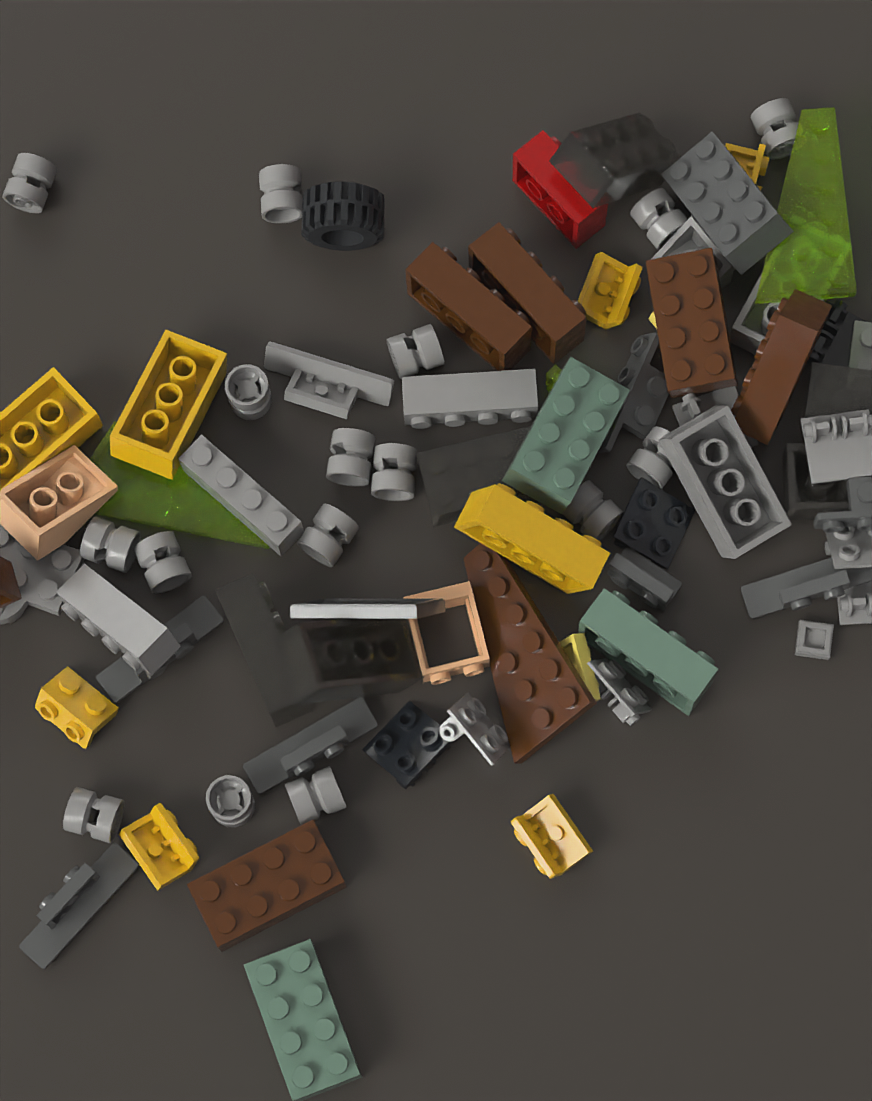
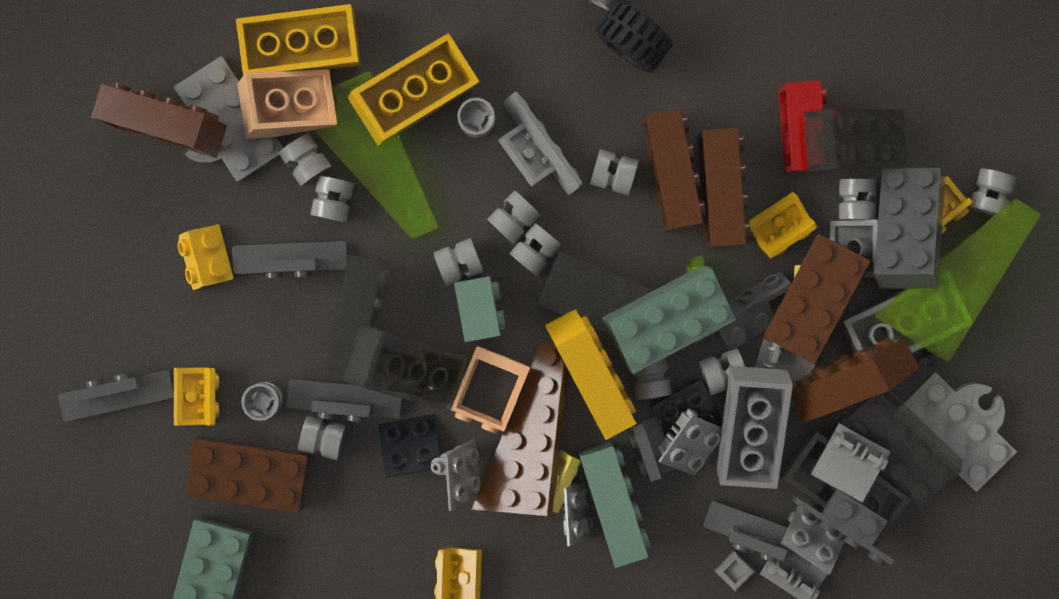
camera: 30 degrees right, 15 degrees up
(82, 811) = (160, 334): light grey wheel -> none
(118, 620) = (270, 223): light grey brick -> none
(241, 495) = (416, 193): light grey brick -> none
(368, 608) = (444, 342): tile -> none
(378, 548) = (479, 308): none -> sand green brick
(470, 398) = (628, 233): light grey brick -> none
(679, 544) = (691, 445): none -> light grey hinge

